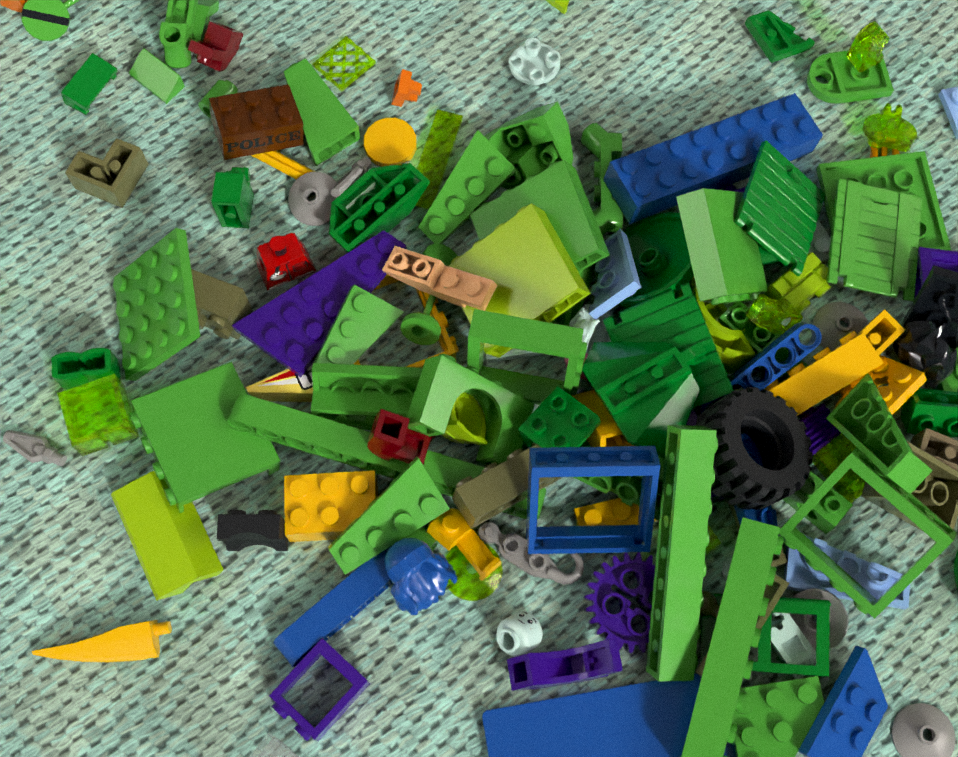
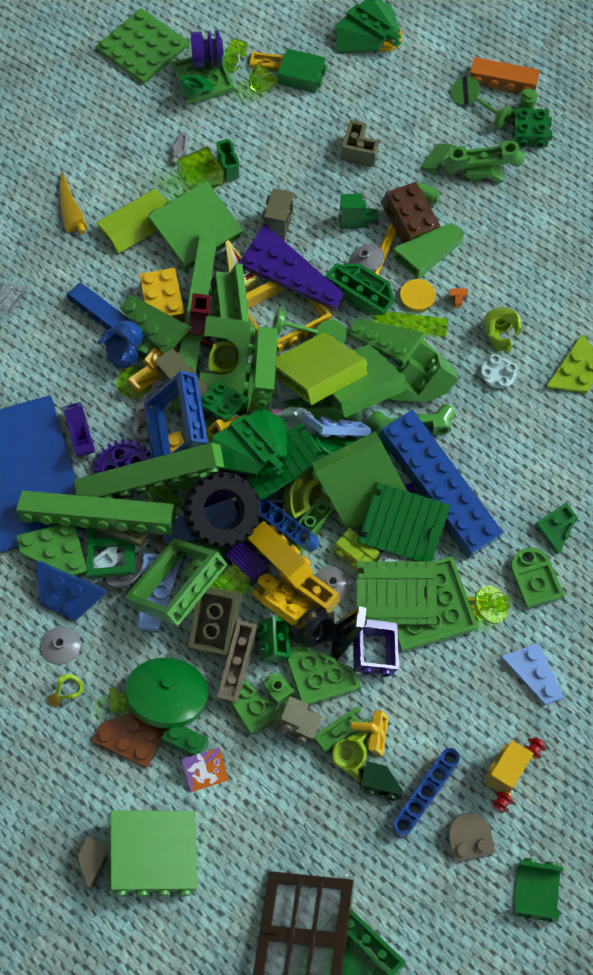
camera: 80 degrees right, 5 degrees down
(88, 83) = (422, 122): green hinge -> none
(156, 305) = (269, 181): bright green plate -> none
(217, 47) = (464, 186): dark red brick -> none
(245, 530) = (140, 256): black brick -> none
(283, 260) = (315, 244): red torso -> none
(285, 709) = (68, 319): dark purple window -> none
(329, 76) = (480, 252): clear neon green window -> none
(356, 327) = (272, 287): bright green wing -> none
(358, 169) = (392, 279): light grey piece -> none
(438, 279) = (312, 324): light nougat slope -> none
(462, 49) = (499, 321): none -> lime piece
(519, 633) = (96, 406): light aqua head -> none
(770, 313) = (322, 524): clear neon green leg -> none
(870, 45) = (551, 578): clear neon green leg -> none
(873, 430) = (234, 576): bright green wedge -> none

